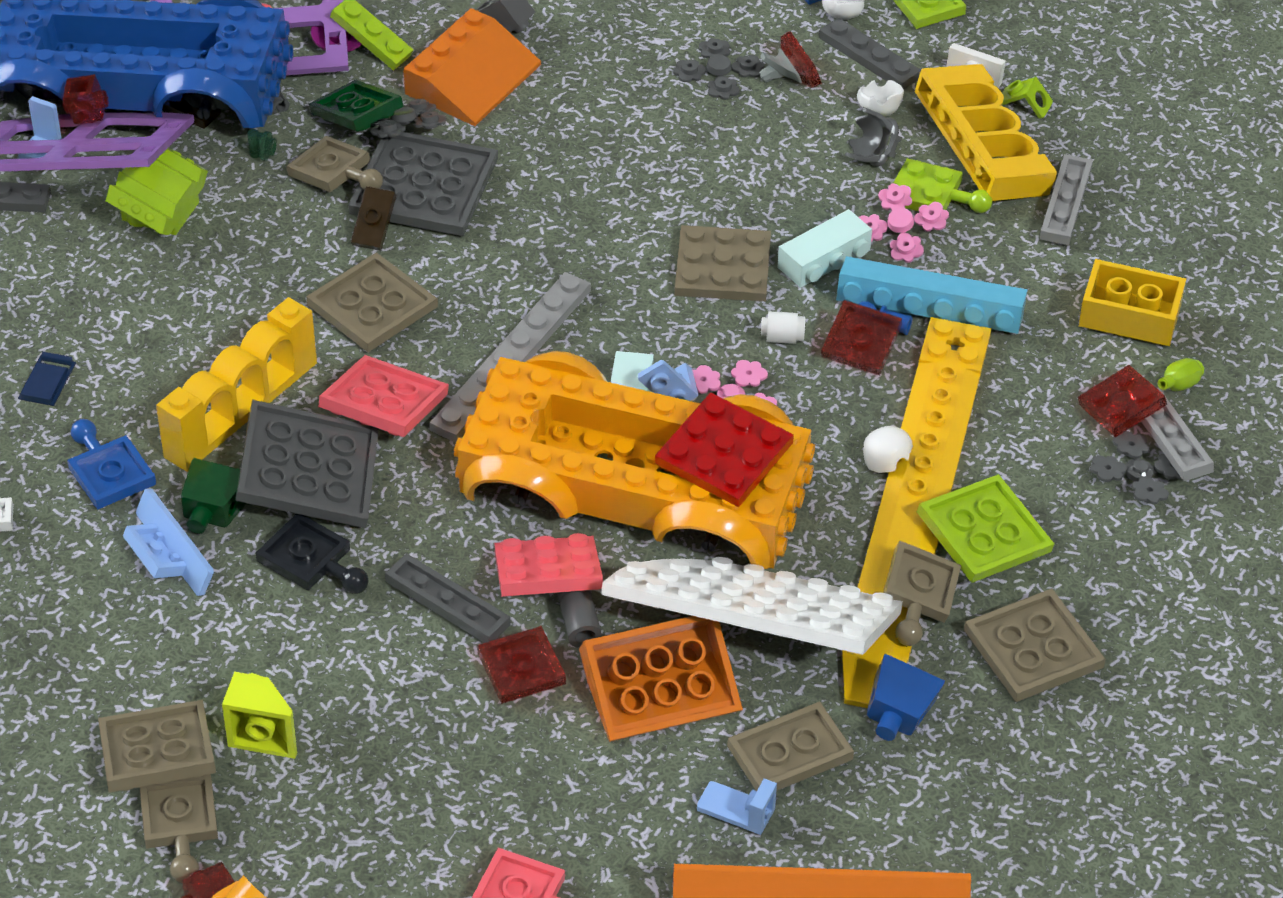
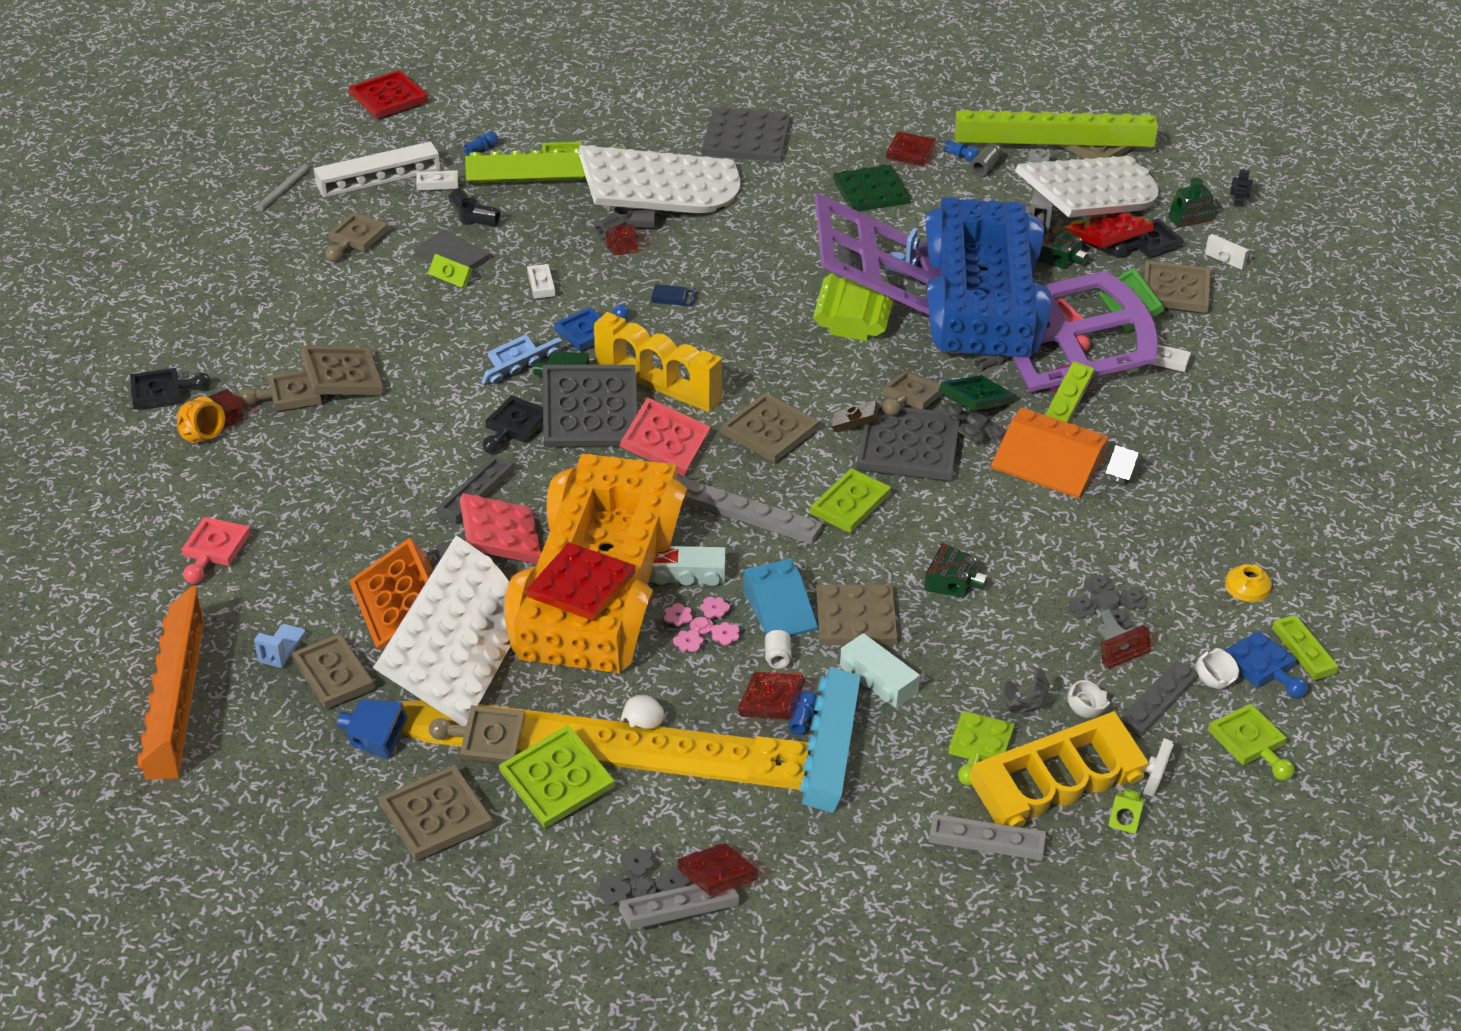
camera: 85 degrees right, 5 degrees down
(84, 99) = (924, 254): clear red brick -> none
(258, 717) = (359, 405): neon yellow slope -> none
(261, 144) = (926, 357): clear green plate -> none
(521, 664) = (416, 523): clear red plate -> none
(527, 243) = (850, 500): none -> lime plate
(668, 172) = (953, 573): none -> torso
(670, 382) = (702, 590): light blue bracket -> none
(699, 320) = (779, 598): none -> dark azure slope
(902, 220) = (927, 718): bright pink plant -> none
(1132, 302) = (842, 875): yellow brick -> none
(1181, 375) = (759, 915): lime plant -> none

